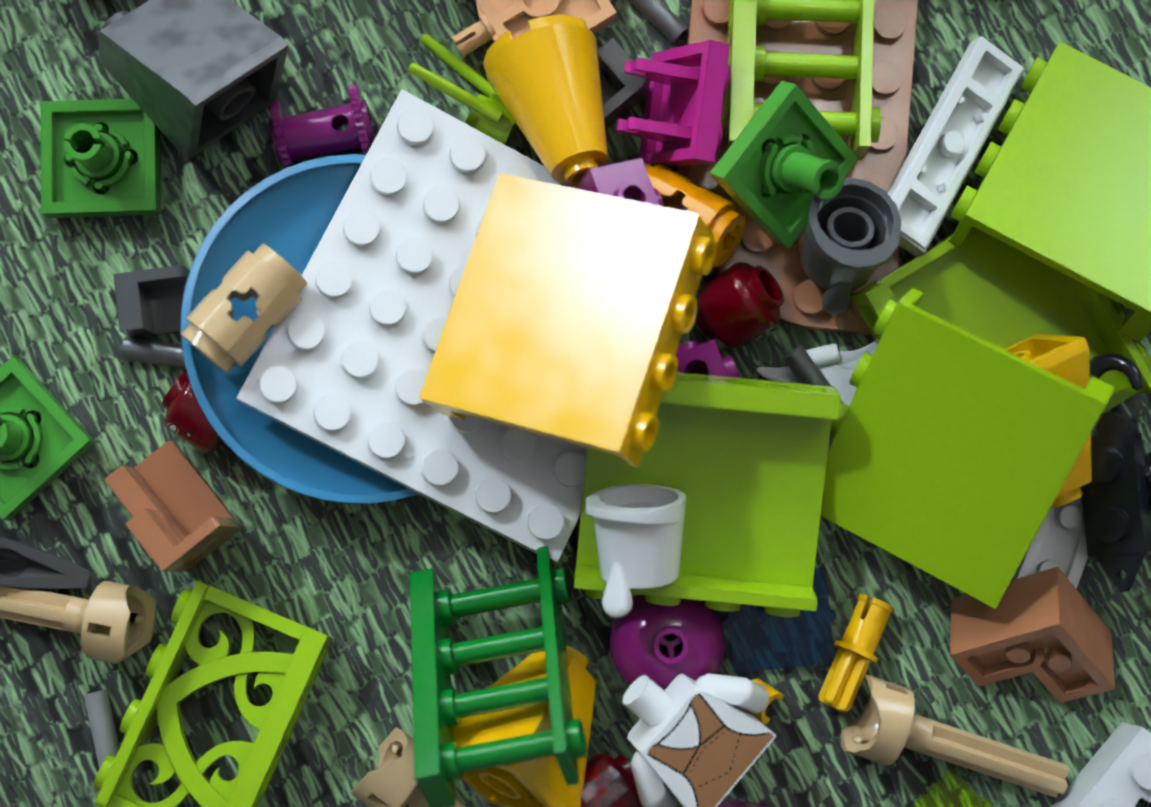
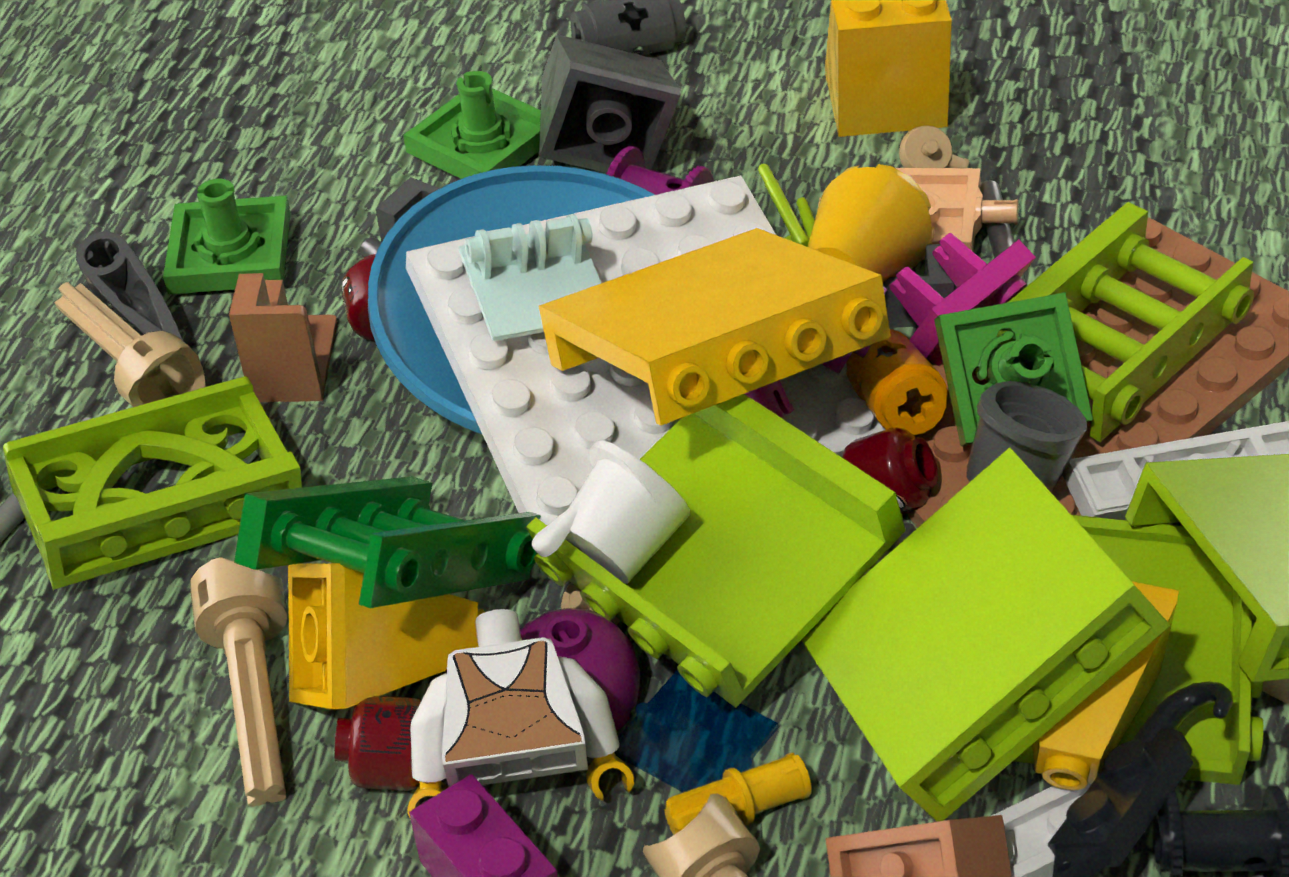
camera: 45 degrees right, 40 degrees down
(257, 275) = (445, 206): tan piece -> none
(369, 354) = (521, 271): none -> light aqua hinge

